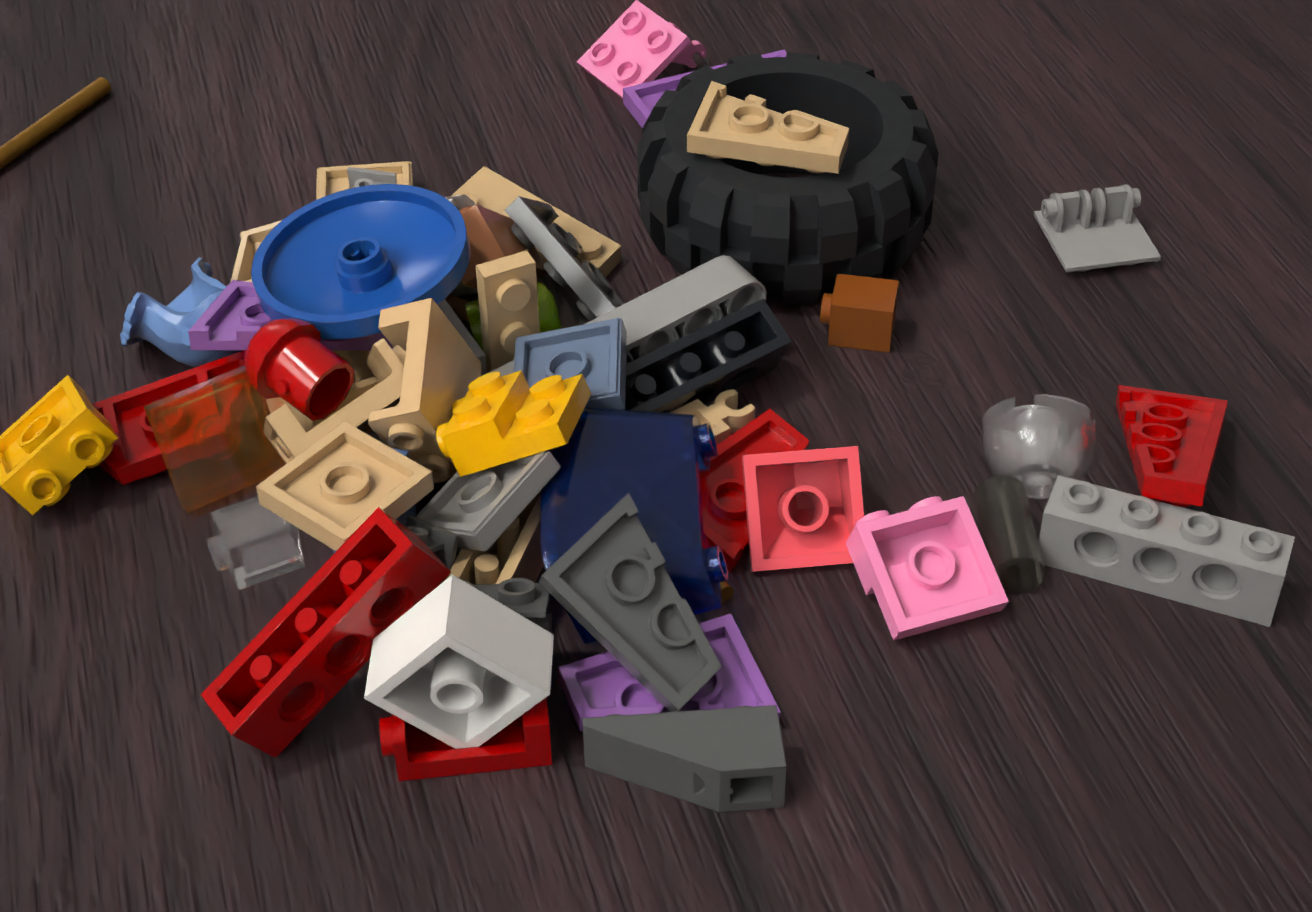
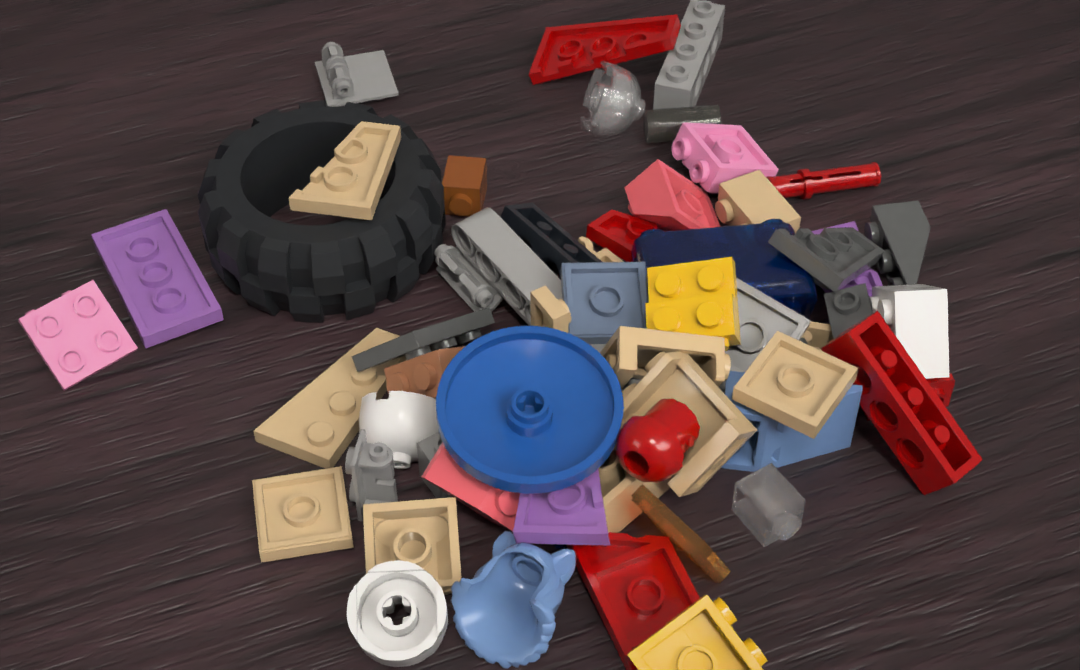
camera: 95 degrees left, 5 degrees up
(189, 225) = (378, 594): none -> white brick
(795, 593) = (753, 201): none -> tan brick
(873, 668) = (837, 179): none -> red pin

